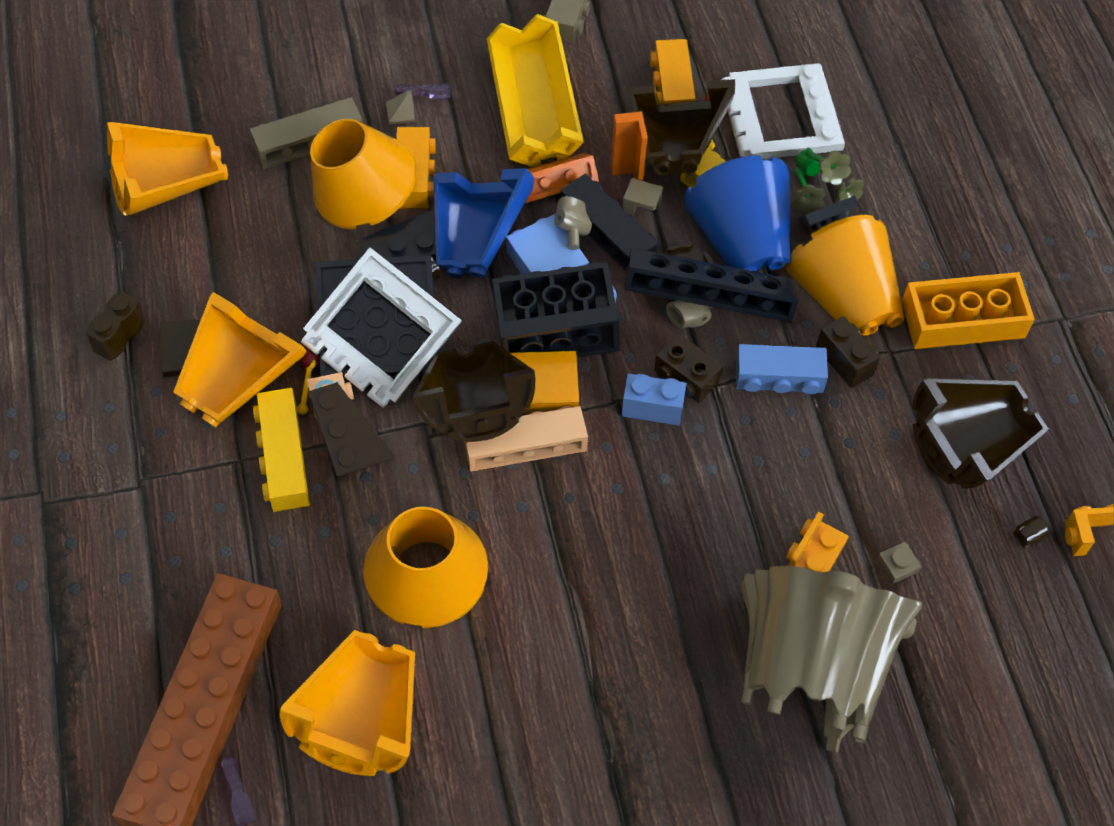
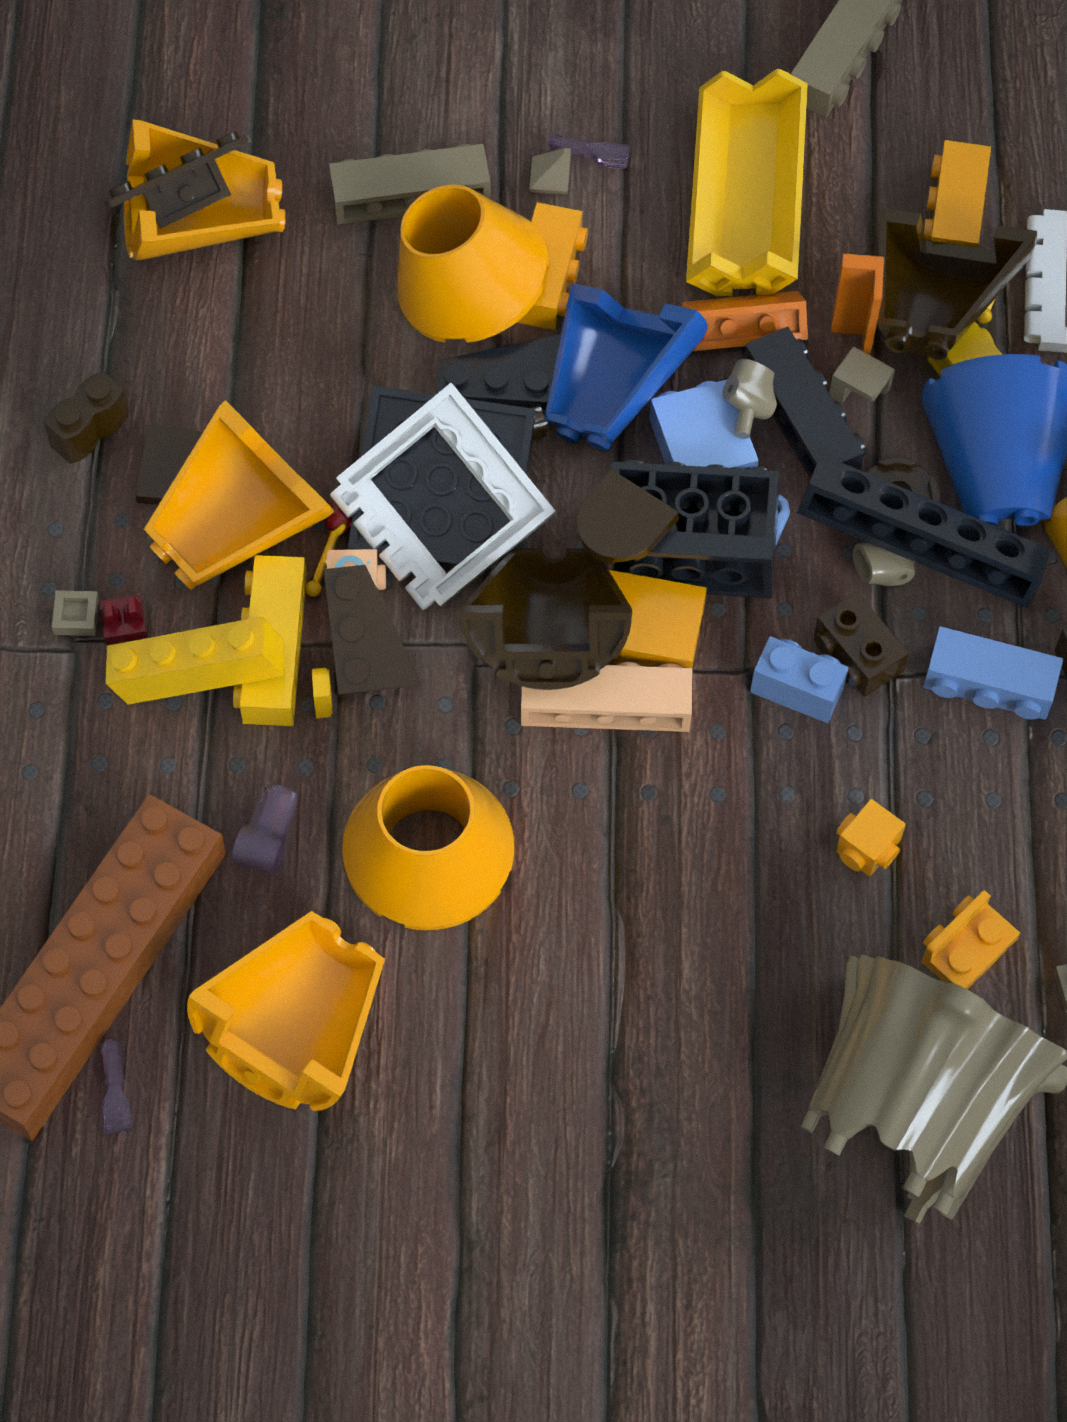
camera: 15 degrees right, 5 degrees up
(135, 460) = (75, 613): none -> dark tan plate
(152, 161) = (185, 187): none -> dark brown bracket
(171, 458) = (123, 619): none -> dark red tile
(230, 473) = (195, 660): none -> yellow brick
(307, 588) = (264, 839): none -> clear purple piece
(325, 477) = (322, 692): none -> yellow tile
(510, 315) = (622, 520): none -> dark brown tile
(730, 494) = (869, 838): none -> light orange brick

